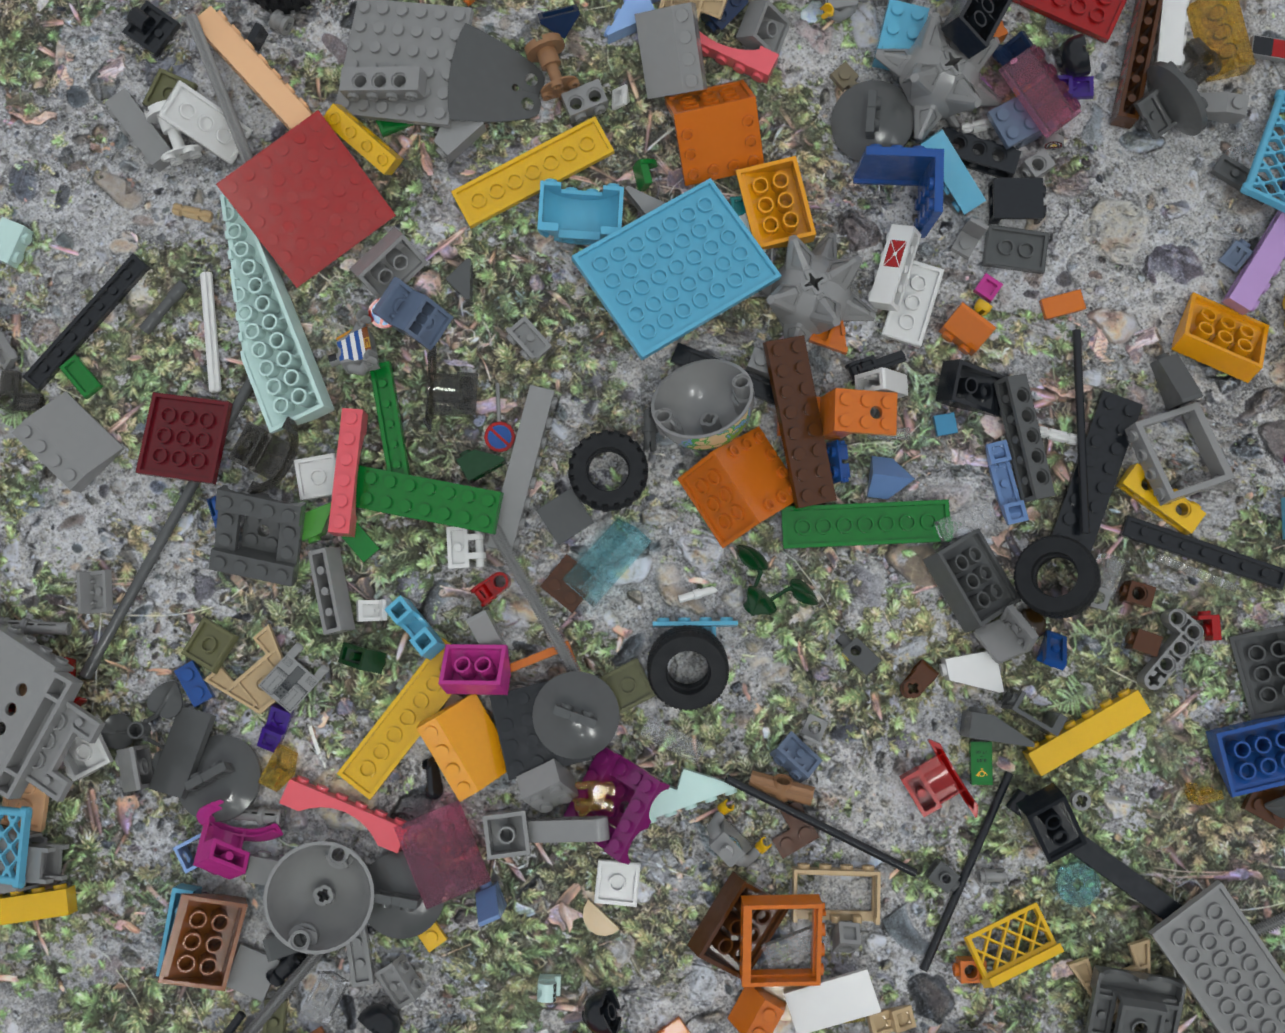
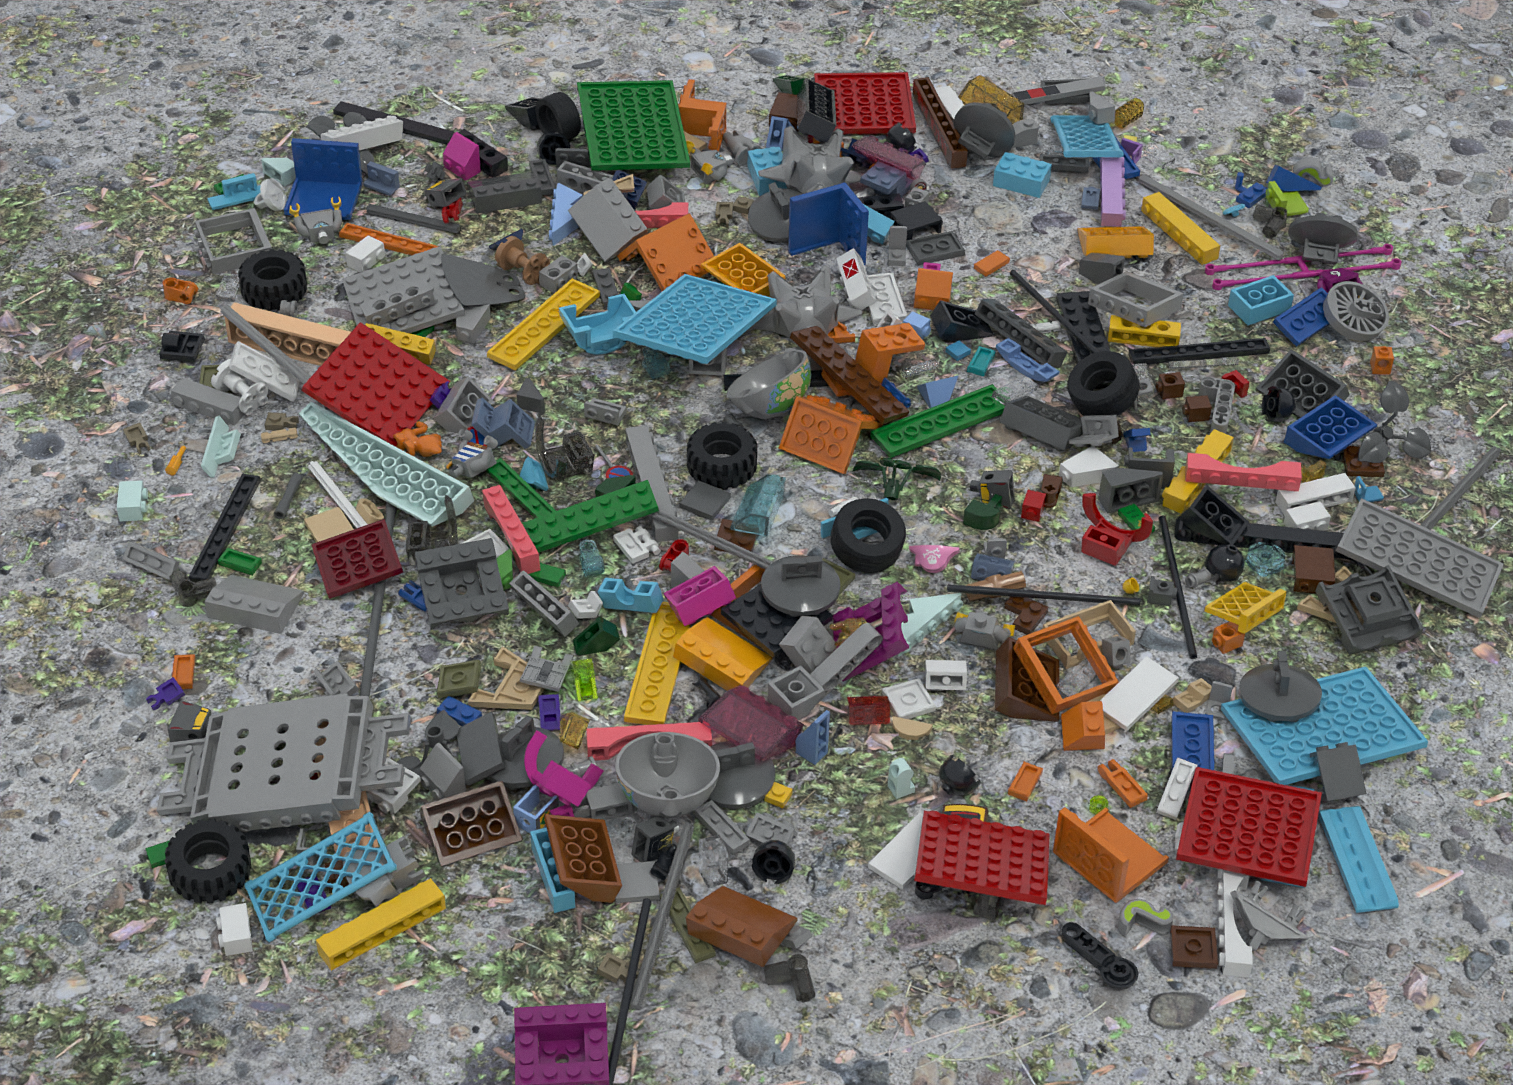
camera: 30 degrees left, 40 degrees down
(52, 147) = (136, 436): none -> dark tan plate
(77, 203) = (175, 462): none -> light orange axle
(125, 204) = (220, 446): none -> light aqua bracket
(136, 831) = (470, 823): none -> reddish brown slope
(184, 370) = (327, 524): none -> tan tile
(201, 190) = (279, 421): none -> dark tan plate
(233, 372) = (368, 511): none -> tan beam
(324, 703) = (584, 679): none -> clear neon green slope
(325, 304) = (424, 445): none -> orange animal
(373, 235) = (440, 394): none -> dark purple plate
(408, 551) = (590, 558): none -> clear light blue piece
(413, 397) = (533, 474): none -> medium azure slope
(570, 878) = (868, 710): none -> clear red bracket
(627, 143) = (605, 284): none -> dark grey plate
(665, 878) = (945, 674): none -> white brick
(742, 716) = (933, 557): none -> bright pink hat
(815, 81) = (724, 211): none -> dark tan plate
(826, 684) = (983, 516): none -> dark green brick
(885, 695) = (1033, 505): none -> red brick
(917, 851) = (1130, 586): none -> yellow hinge
(920, 370) = (919, 323): none -> light blue brick
(960, 452) = (981, 361): none -> teal tile
(1029, 875) = (1225, 561): none -> black cylinder
(1087, 752) = (1279, 476): none -> coral arch
(1115, 928) = (1311, 567): none -> reddish brown panel
(1155, 857) = (1308, 516): none -> white brick
(1181, 179) = (1022, 174): none -> medium azure brick
(1185, 826) = (1328, 491): none -> white brick
(1232, 684) = (1278, 404): none -> black cylinder
(1243, 850) = (1369, 494): none -> dark azure bracket

